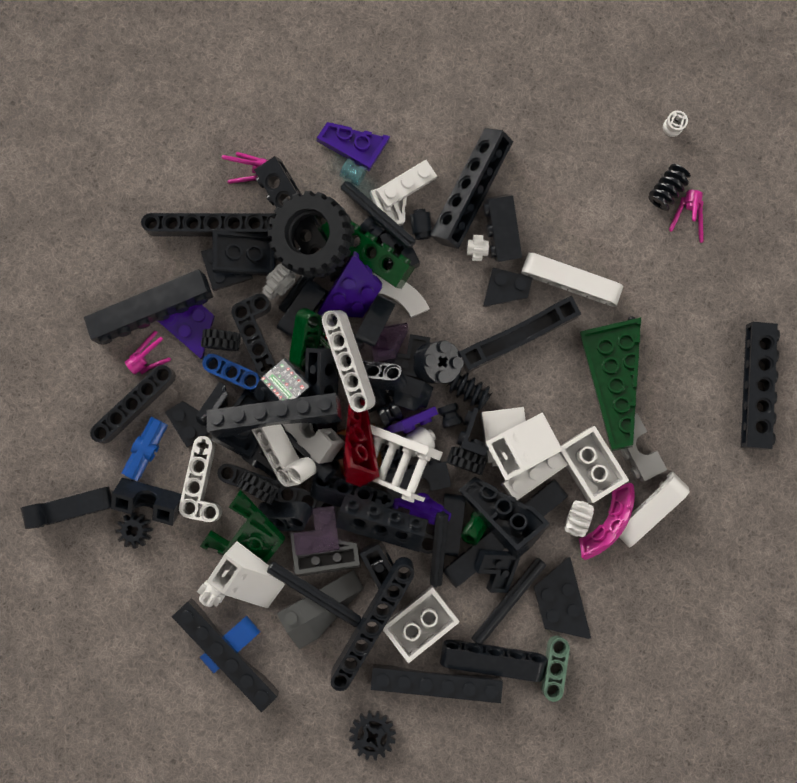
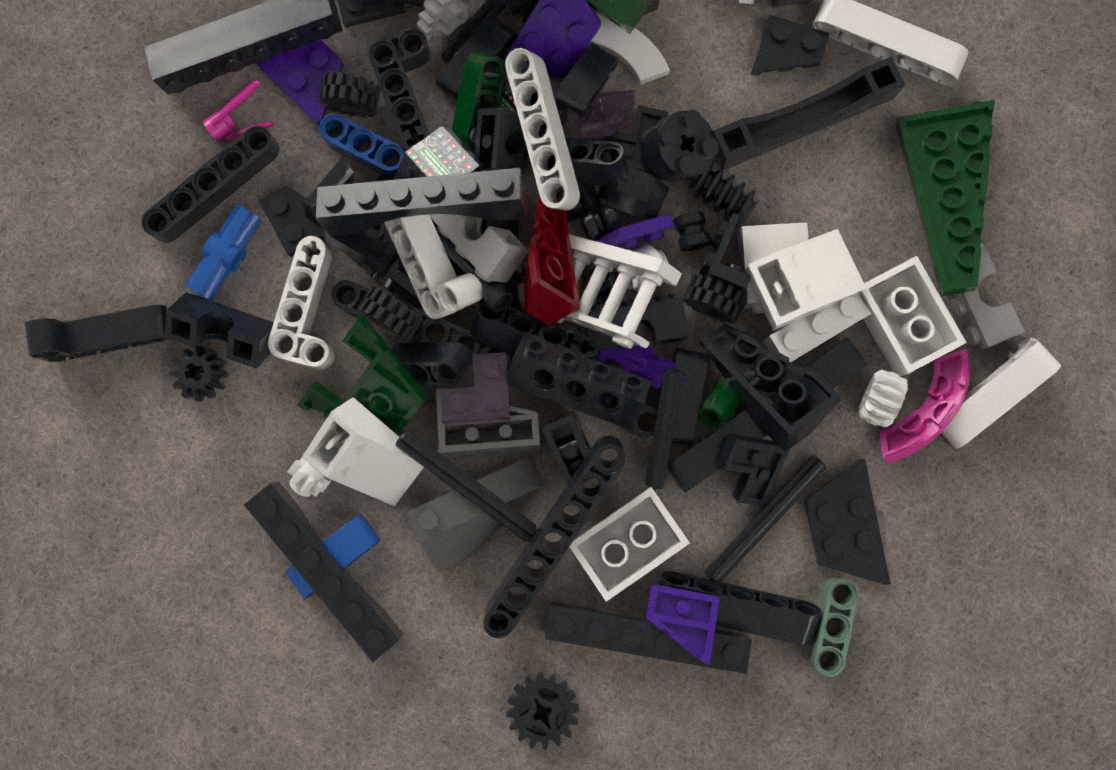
camera: 10 degrees right, 0 degrees up
(459, 670) = (685, 618): none -> dark purple wing

